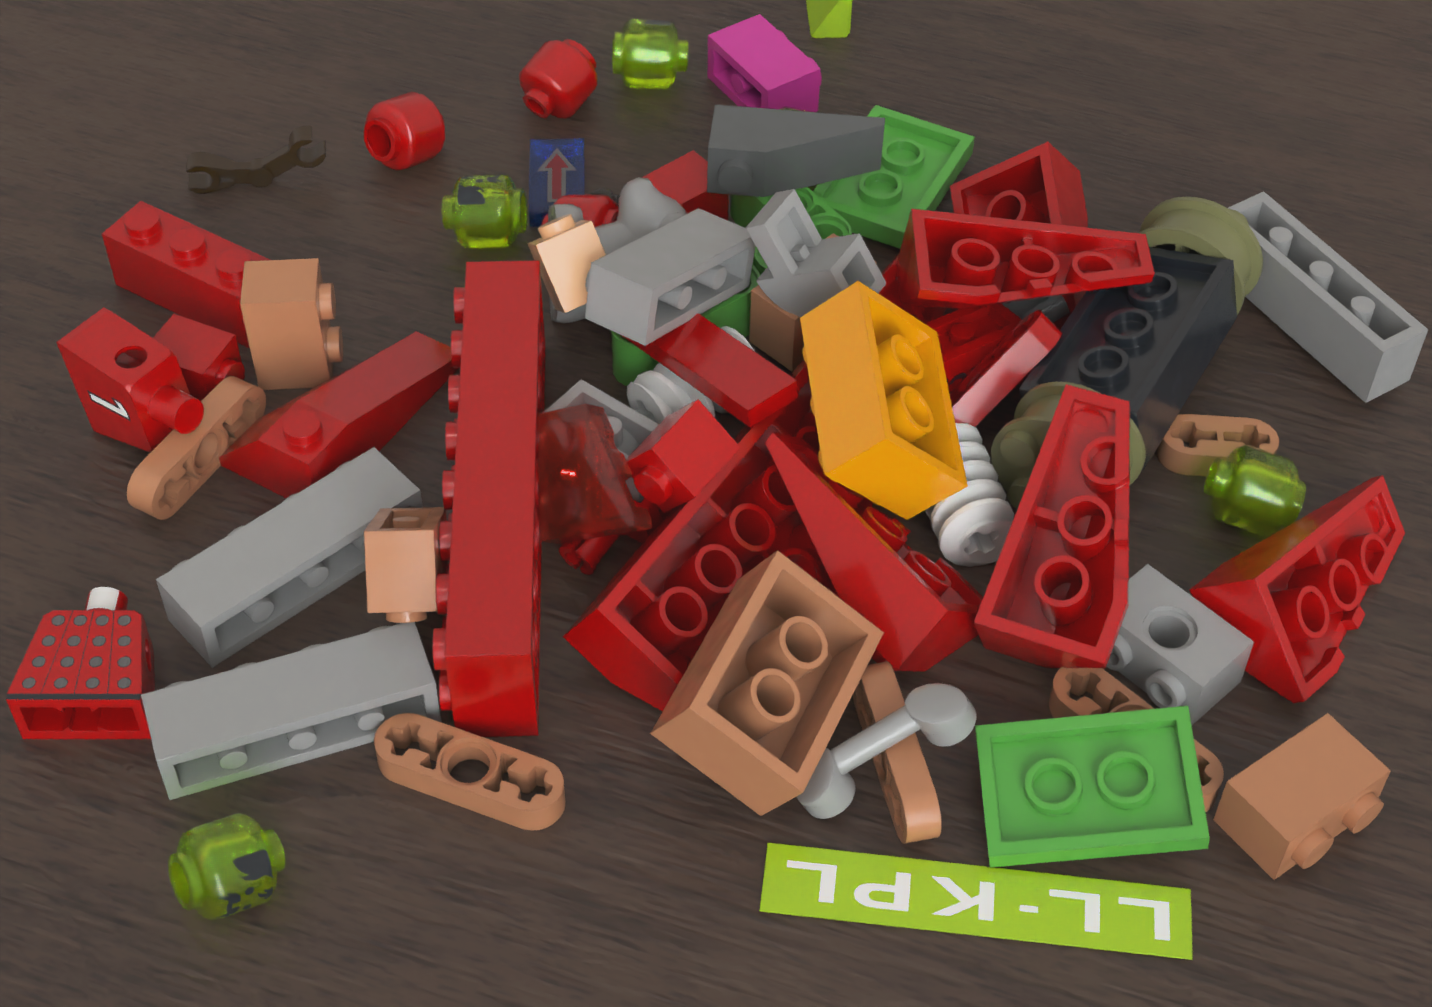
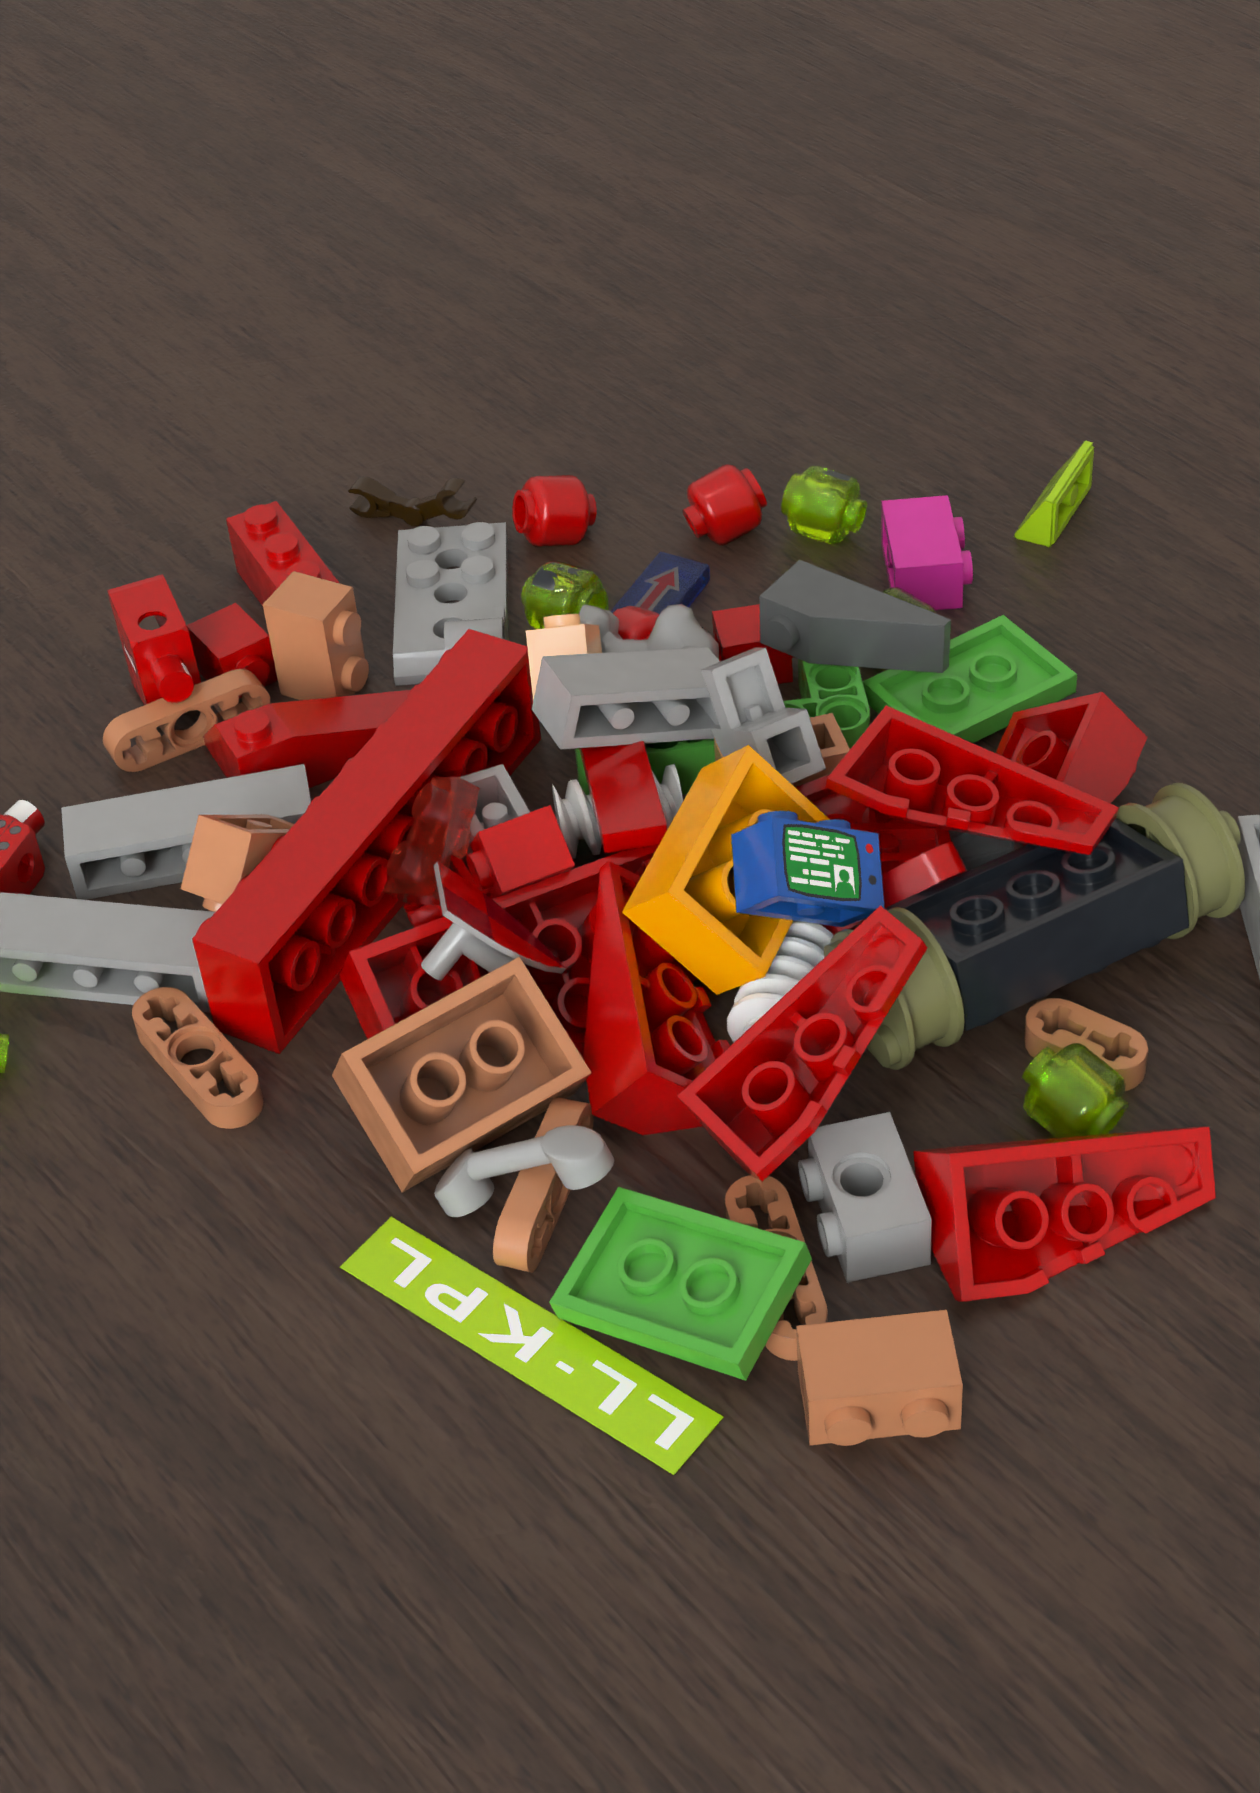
camera: 35 degrees right, 5 degrees down
(376, 217) = (426, 585): none -> light grey hinge
(698, 549) = (481, 931): none -> shield
(959, 376) = (806, 870): none -> blue brick

